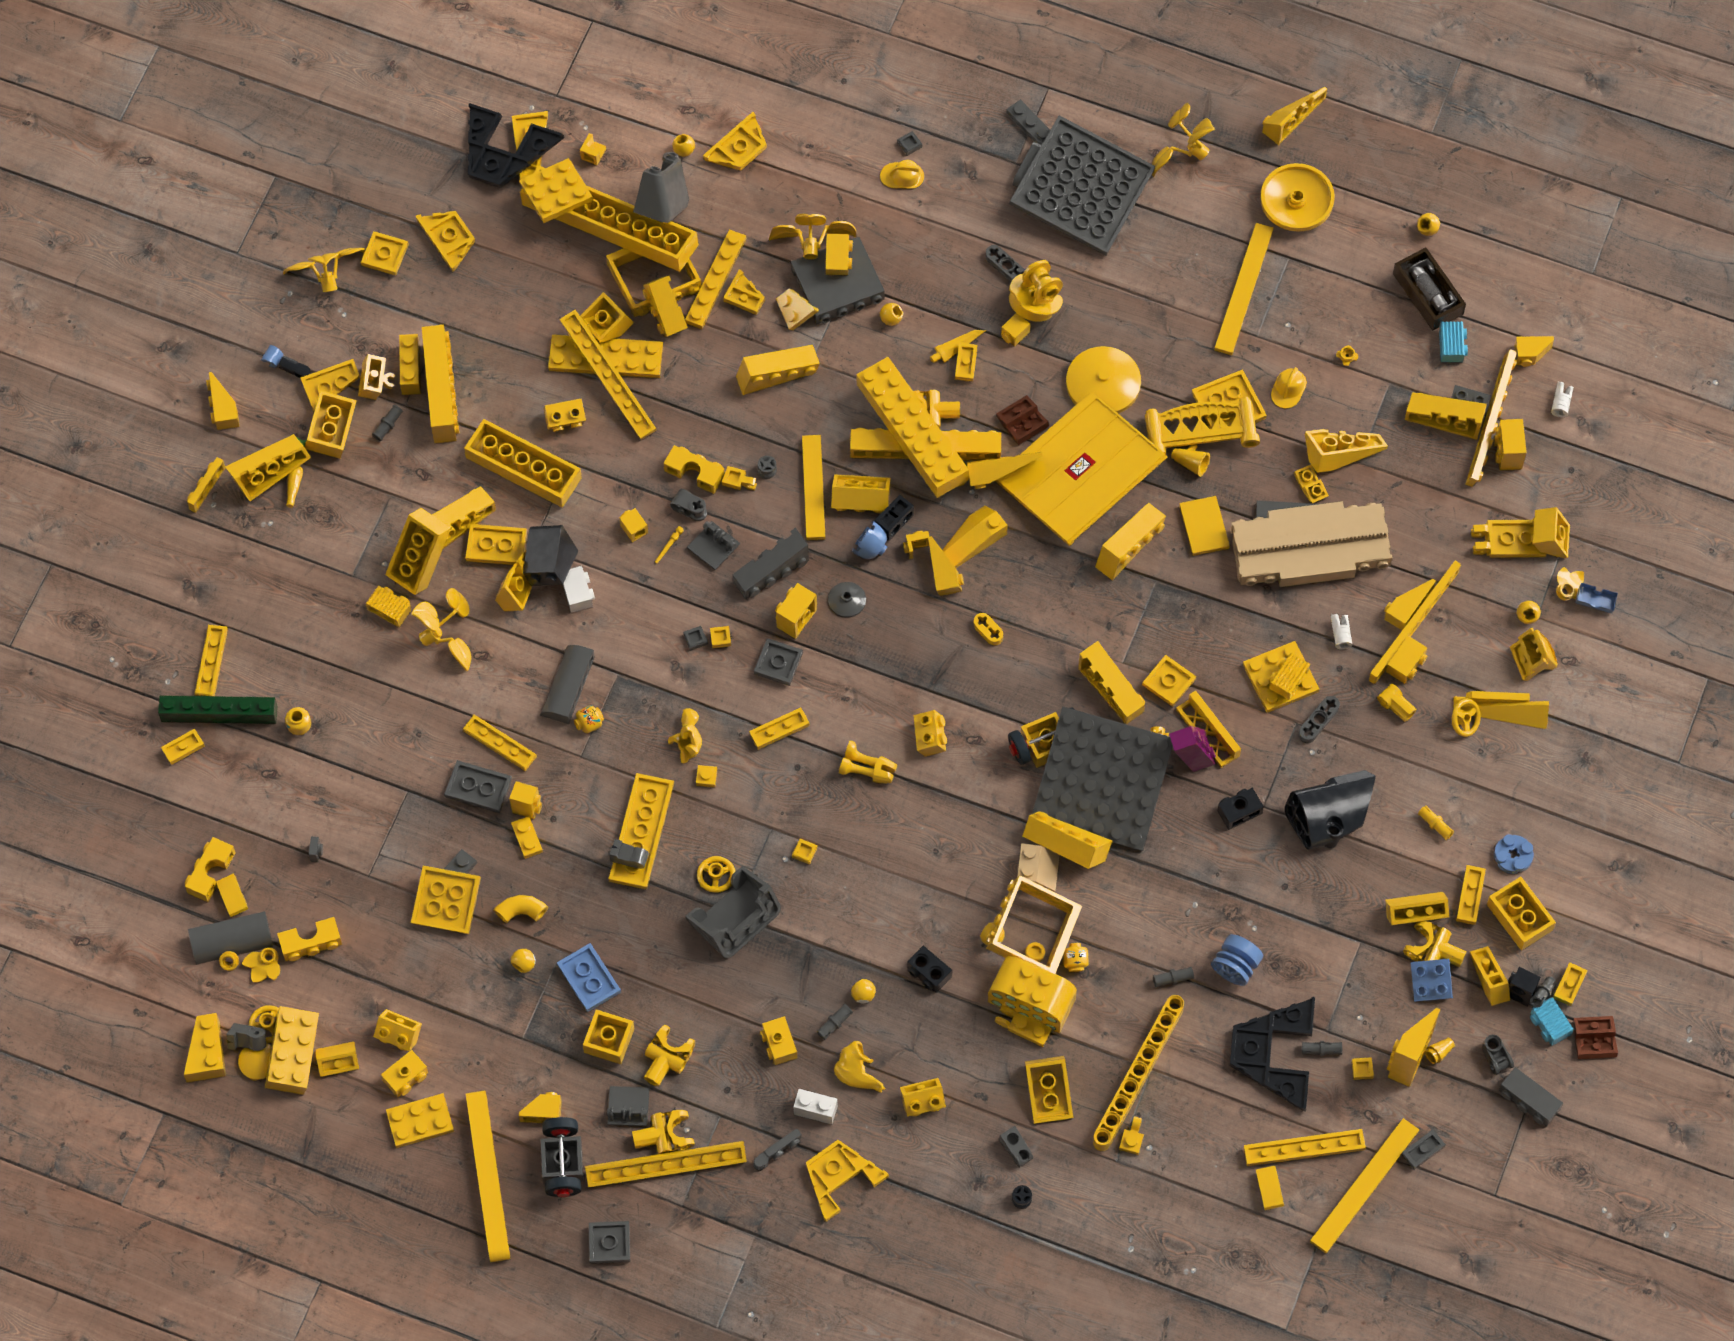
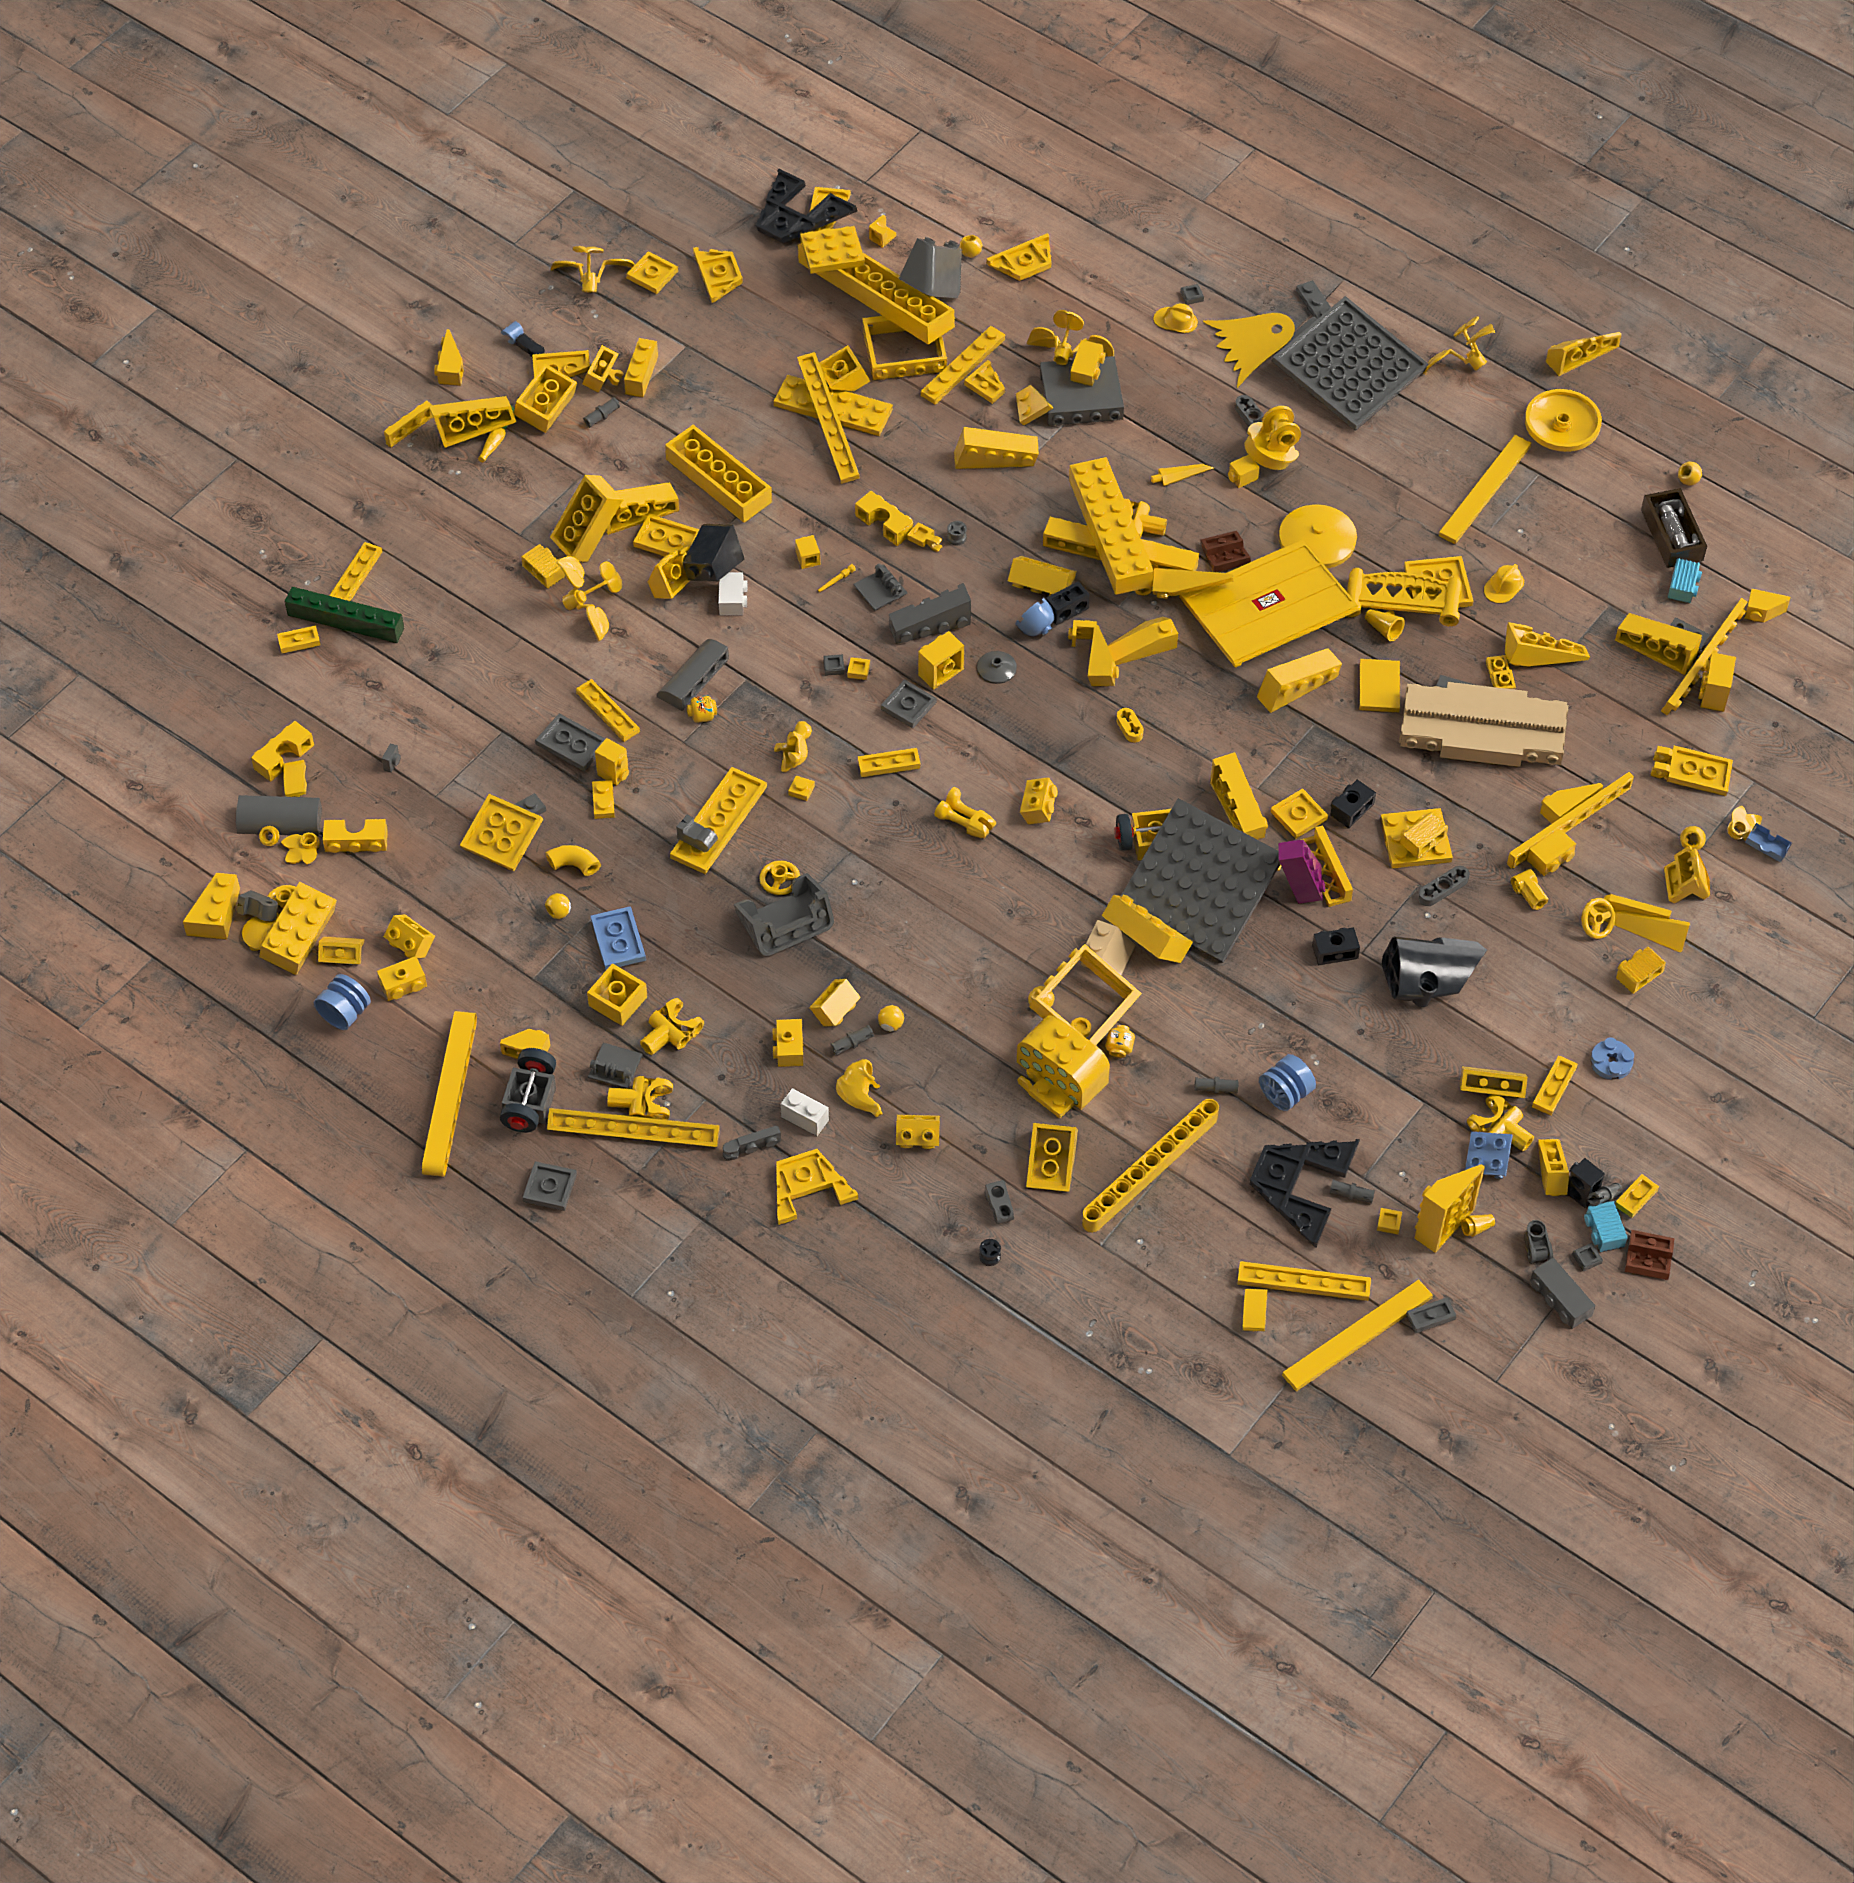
camera: 15 degrees right, 10 degrees down
(298, 721) = (417, 642): yellow head -> none
(360, 1114) = (342, 1001): none -> medium blue wheel
(419, 1120) = (401, 1026): yellow plate -> none
(440, 383) = (662, 388): yellow brick -> none
(564, 413) = (774, 442): yellow brick -> none
(664, 306) = (903, 369): yellow wedge -> none
(689, 505) = (868, 548): dark grey piece -> none
(804, 851) = (876, 879): yellow tile -> none
(808, 990) = (835, 1002): none -> yellow brick
(813, 487) = (997, 562): yellow tile -> none
(891, 314) = (1124, 430): yellow piece -> none
(933, 966) = (968, 1014): black brick -> none
(966, 362) = (1185, 488): yellow plate -> none
(982, 181) = (1252, 339): none -> yellow piece
(1132, 1139) = (1124, 1228): yellow plate -> none
(1213, 668) = (1352, 803): none -> black brick
(1341, 632) = (1491, 812): white hinge -> none
(1347, 350) = (1572, 569): yellow plate -> none
(1435, 822) = (1537, 1009): yellow pin -> none
(1516, 758) = (1640, 970): none -> yellow brick
(1521, 913) = (1603, 1113): yellow brick -> none
(1542, 1054) = (1587, 1257): none -> dark grey tile
(1551, 532) = (1737, 770): yellow slope -> none
(1561, 400) = (1782, 659): white hinge -> none

